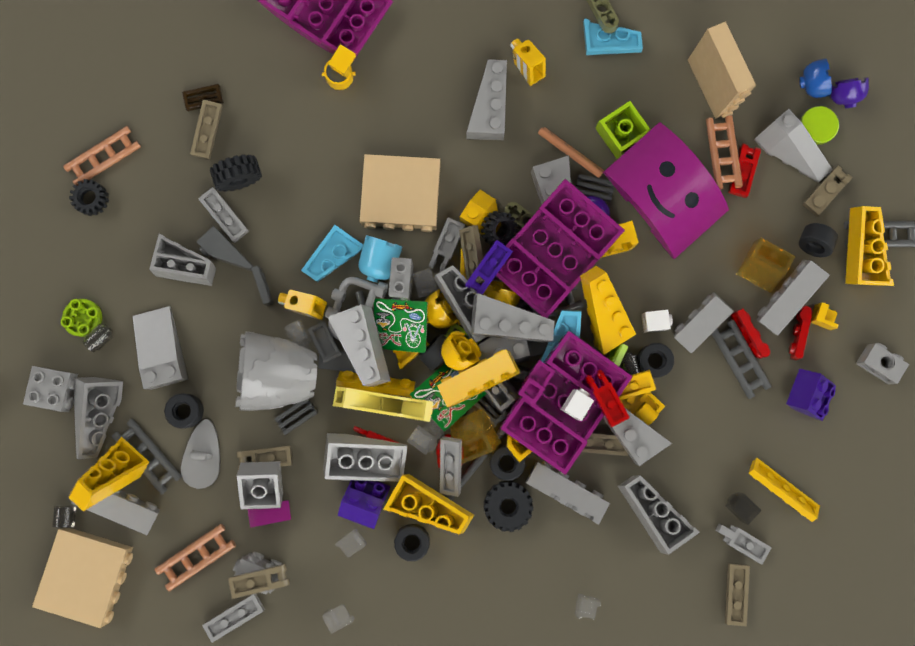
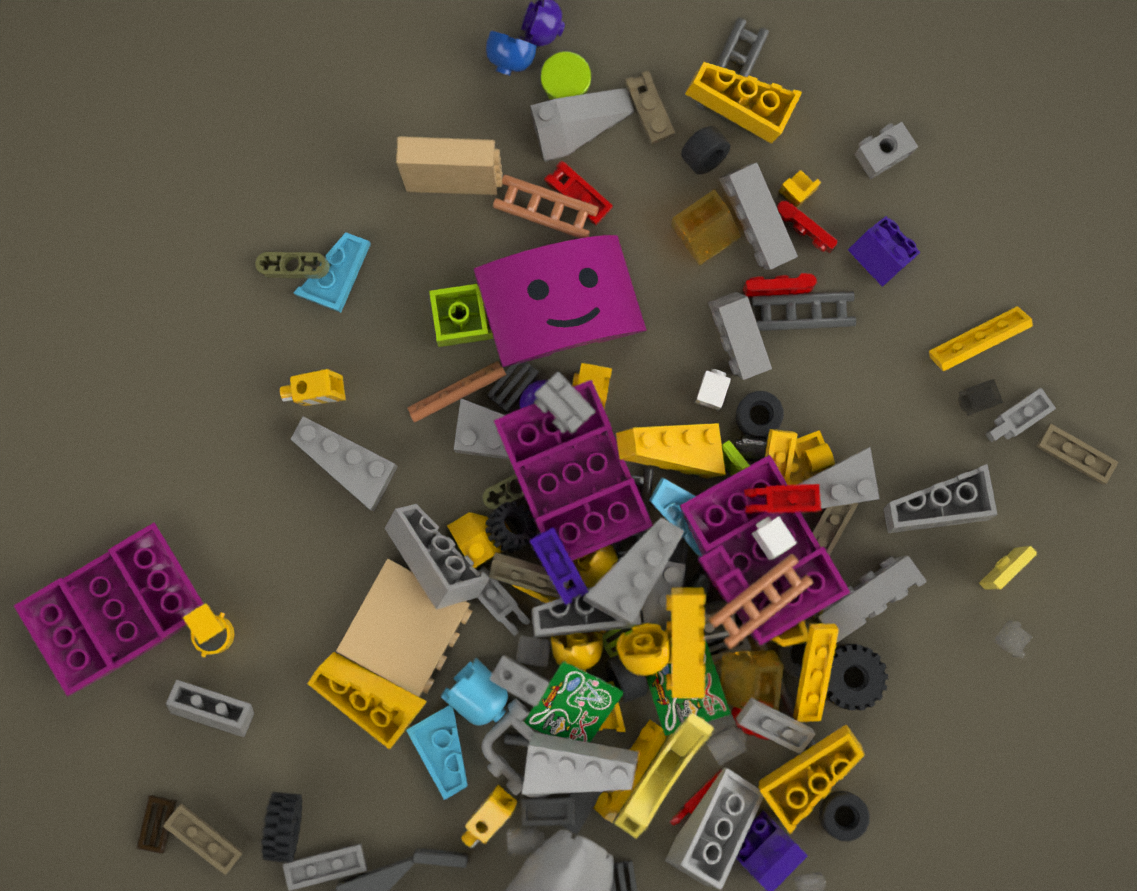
camera: 70 degrees left, 0 degrees up
(290, 93) = (210, 708): none -> light grey brick
(343, 188) = (366, 698): none -> yellow wedge
(452, 189) = (433, 559): none -> light grey wedge
(499, 476) = (815, 672): none -> yellow plate
(518, 416) = (744, 600): none -> nougat bar
(600, 217) = (564, 403): none -> light grey brick
(634, 578) = (1008, 567): none -> light yellow plate

